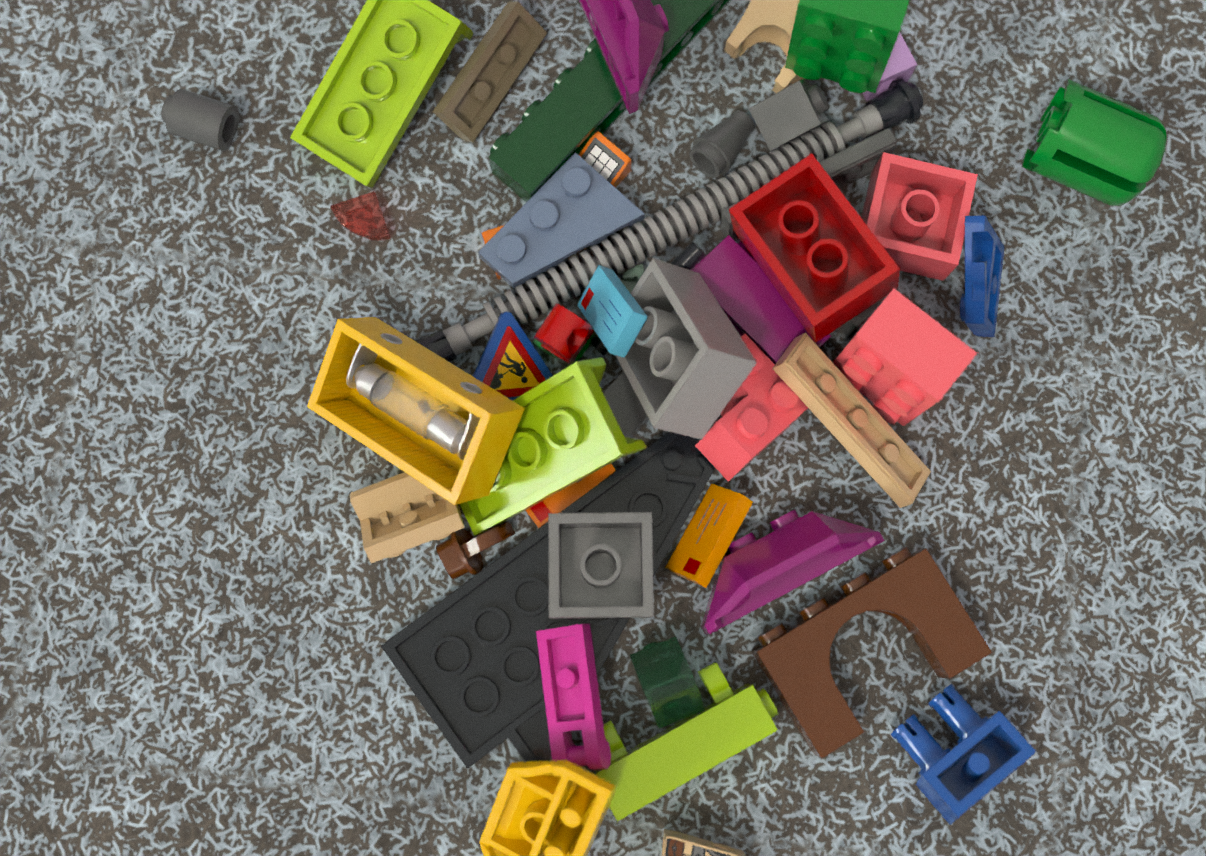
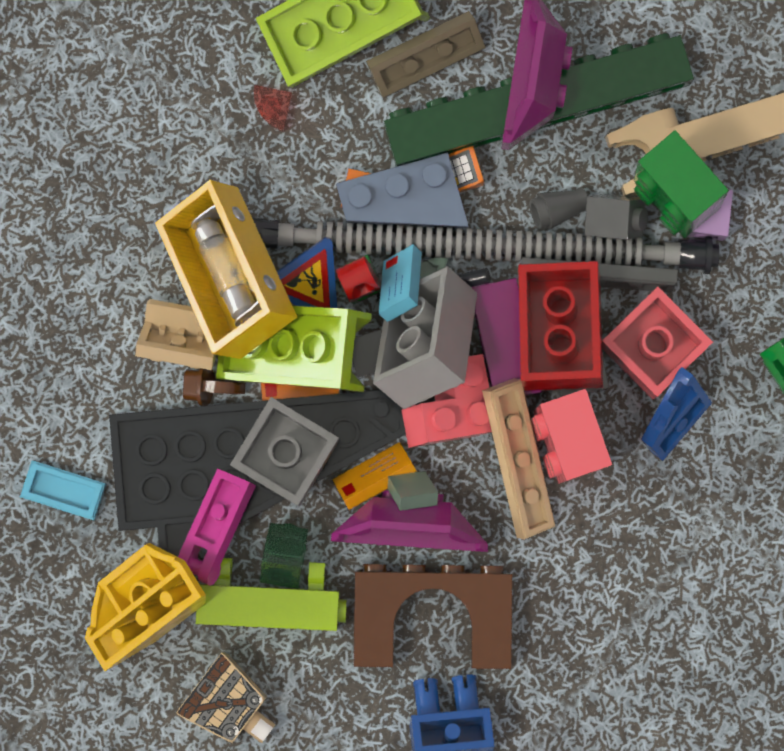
camera: 35 degrees right, 5 degrees up
(379, 761) = (63, 490): none -> medium azure tile
(763, 524) = (412, 490): none -> sand green tile

